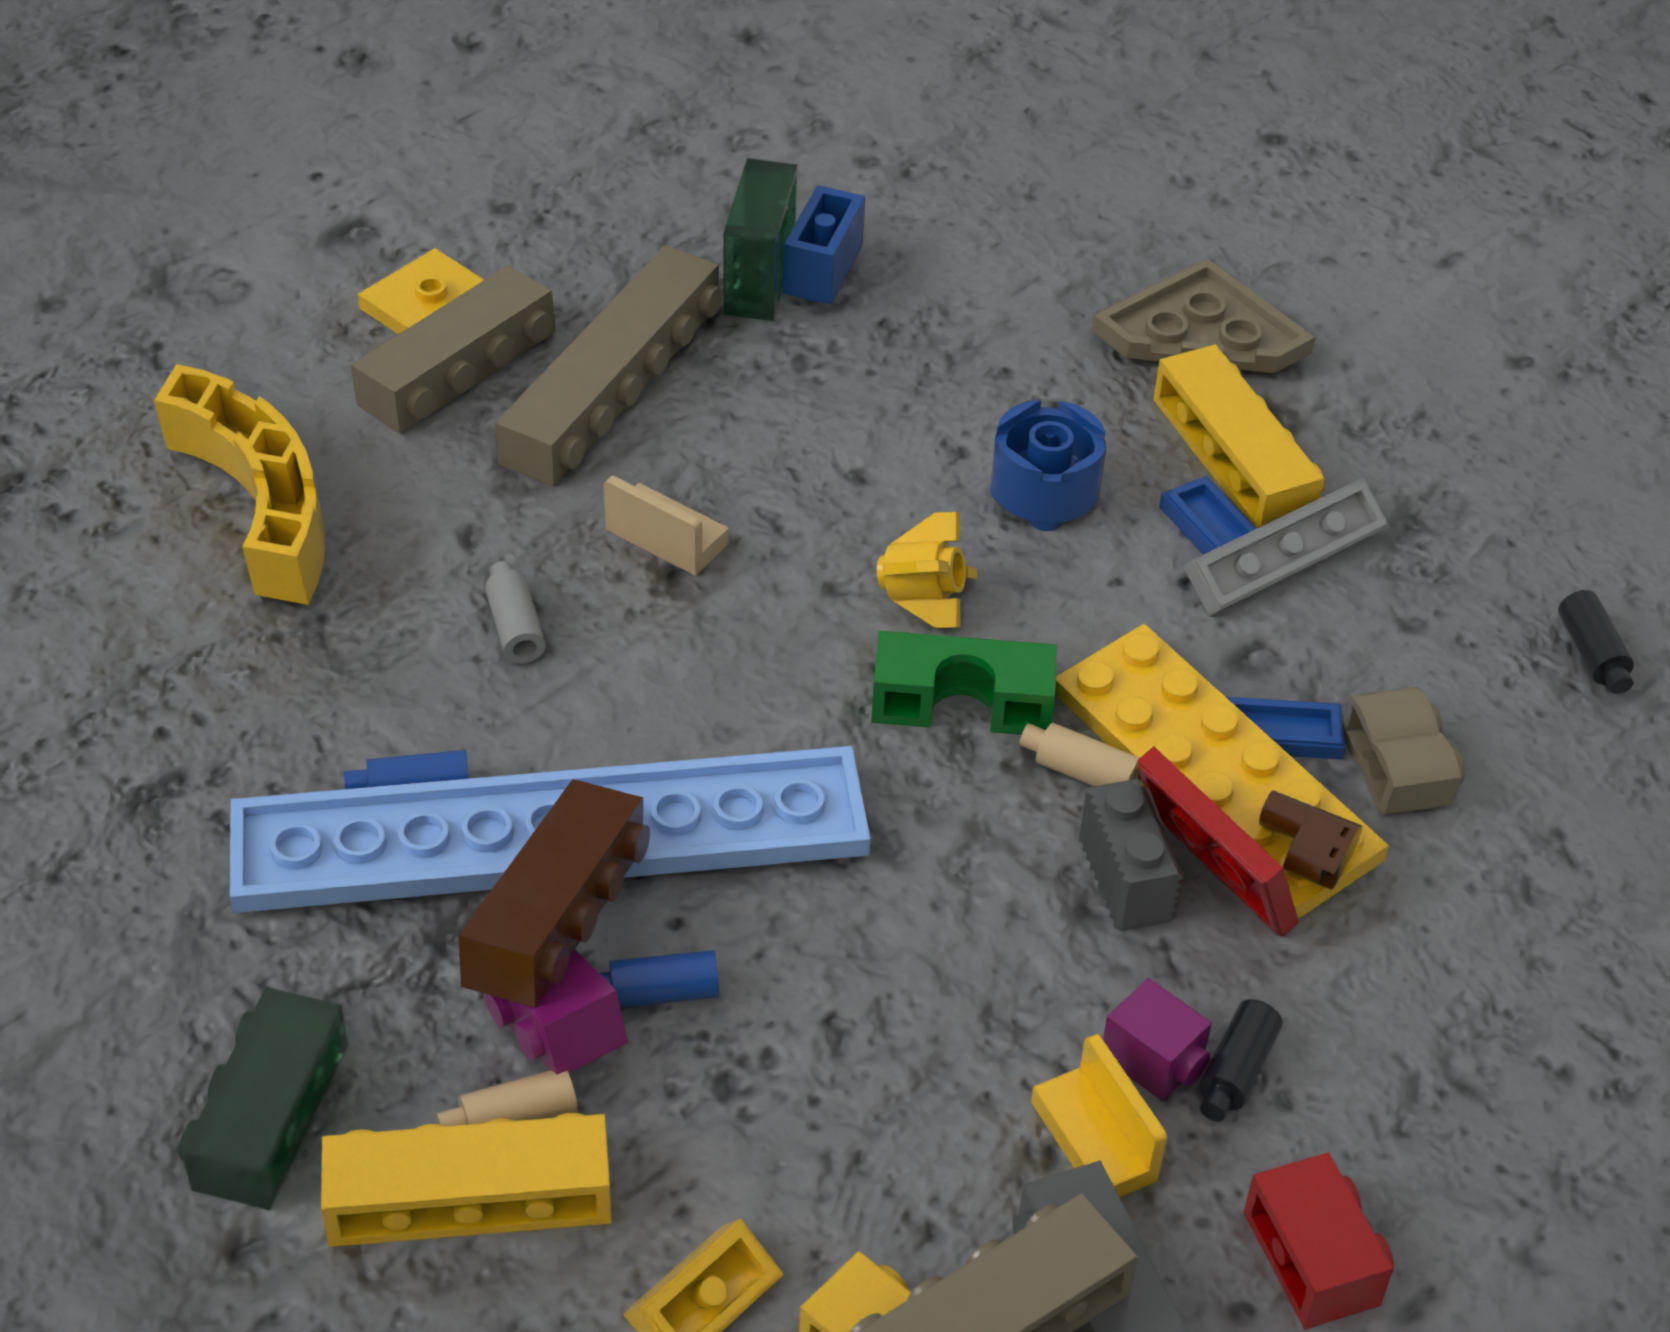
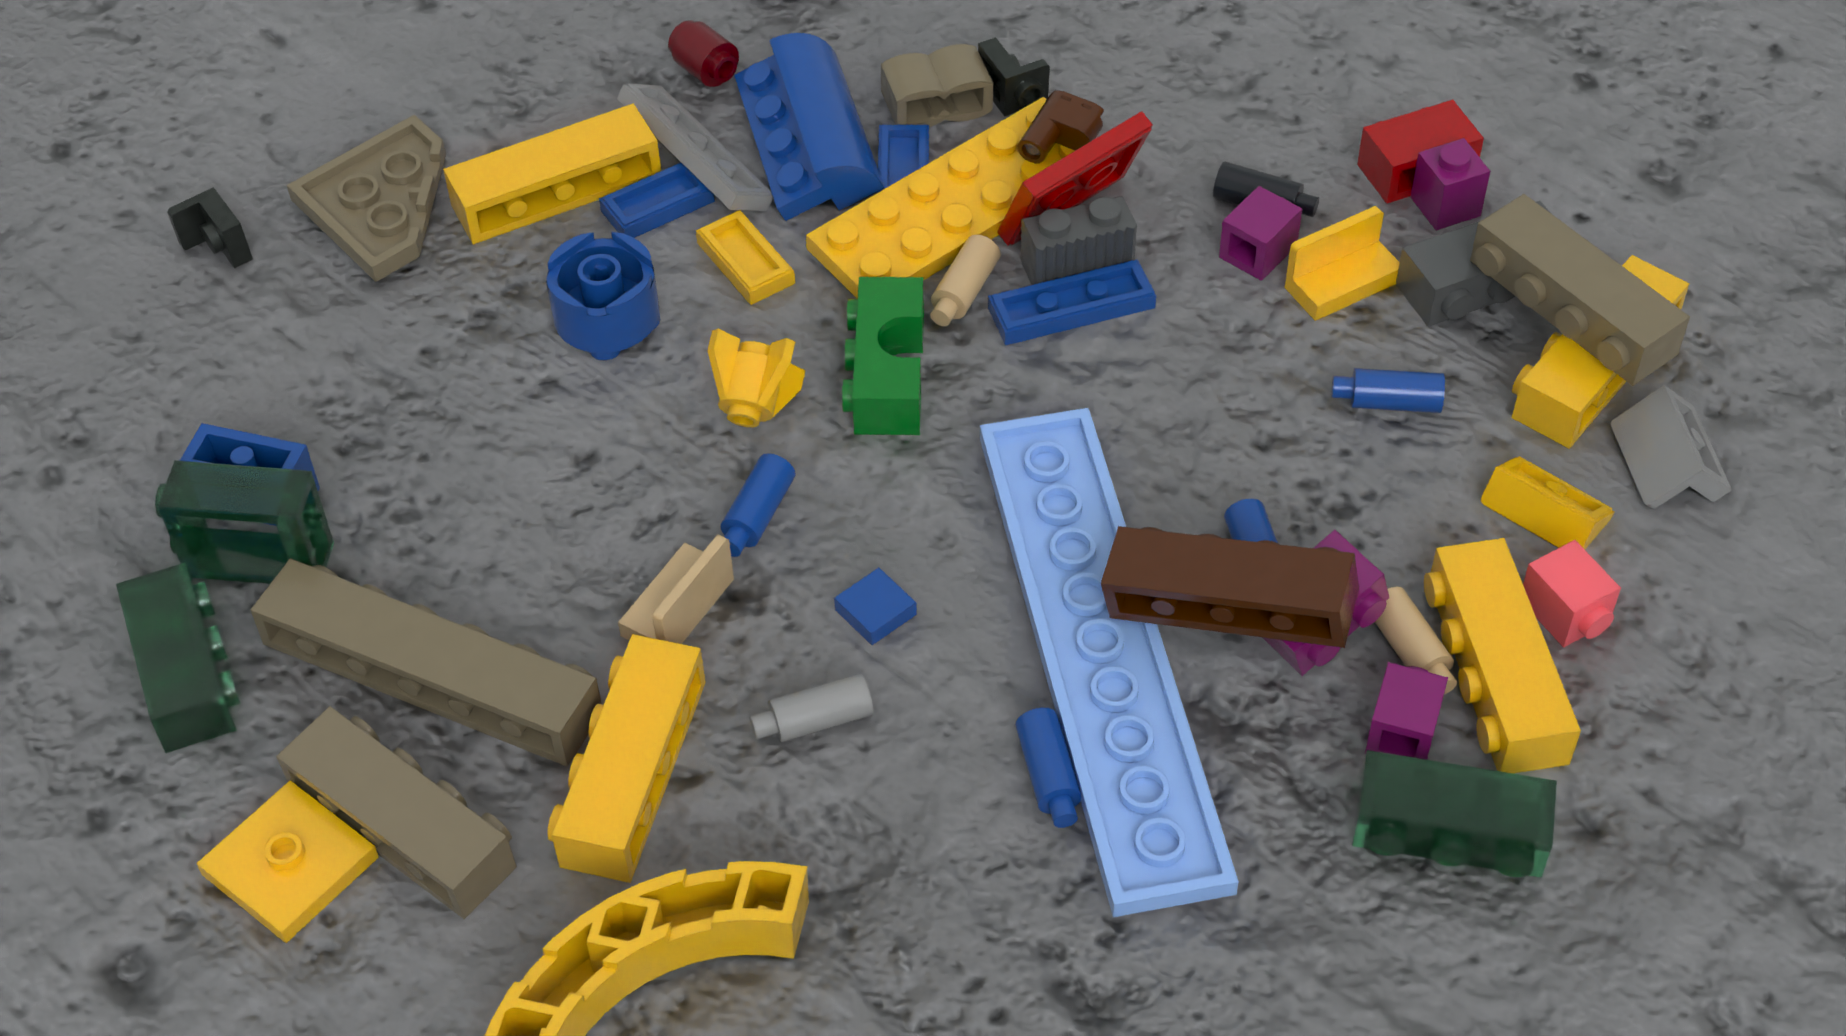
camera: 90 degrees left, 5 degrees up
(403, 1074) = (1406, 711): none -> magenta brick
(481, 485) = (628, 758): none -> yellow brick
(540, 1267) = (1571, 594): none -> coral brick
(636, 221) = (179, 657): none -> clear green brick
(636, 666) = (875, 606): none -> blue tile
(773, 580) = (757, 502): none -> blue cylinder
(890, 1148) = (1392, 390): none -> blue cylinder
(1058, 861) = (1071, 302): none -> blue tile
(1128, 590) = (745, 257): none -> yellow tile
(1152, 222) = (210, 220): none -> pearl dark grey bracket
(1246, 1258) = (1450, 184): none -> magenta brick
(1328, 638) = (807, 127): none -> blue brick
(1421, 815) = (1013, 84): none -> pearl dark grey bracket
(1441, 554) = (703, 52): none -> dark red brick

